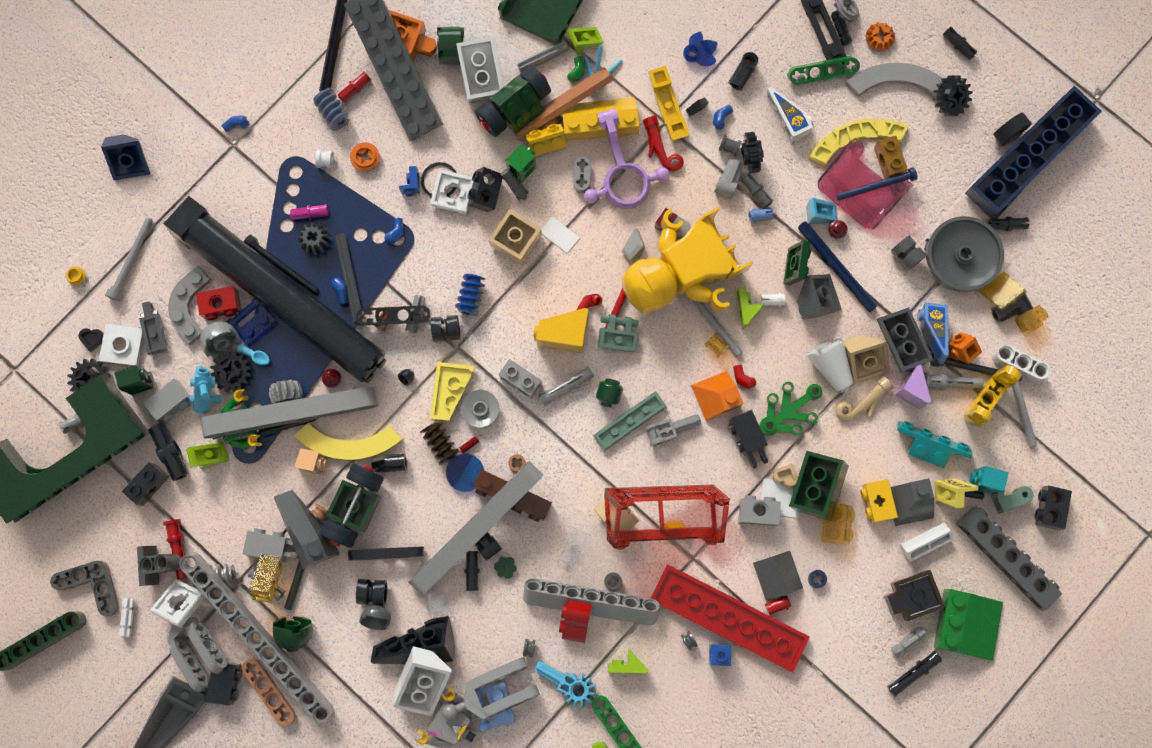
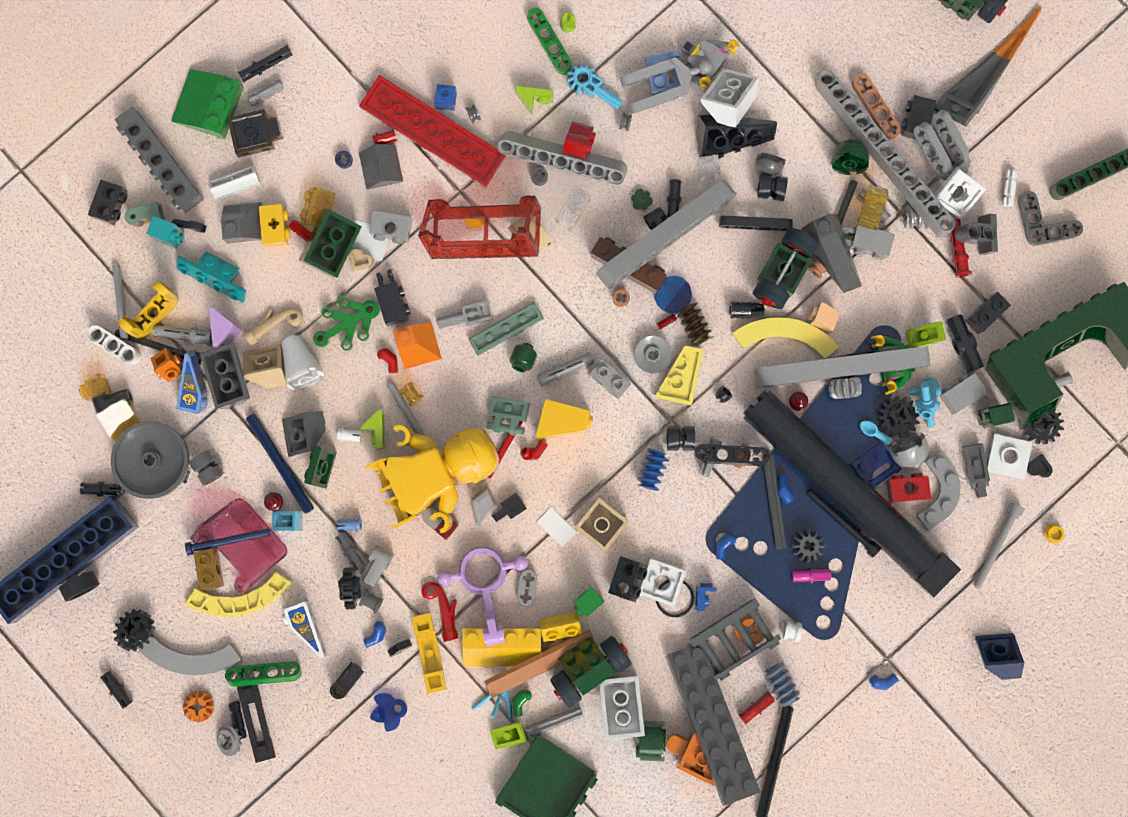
camera: 175 degrees left, 5 degrees up
(380, 163) = (718, 630): none -> dark grey fence
(514, 184) = (597, 581): dark grey piece -> none
(605, 247) = (511, 506): none -> black plate
(849, 499) = (300, 230): none -> red axle
(952, 491) = (202, 225): light yellow panel -> none

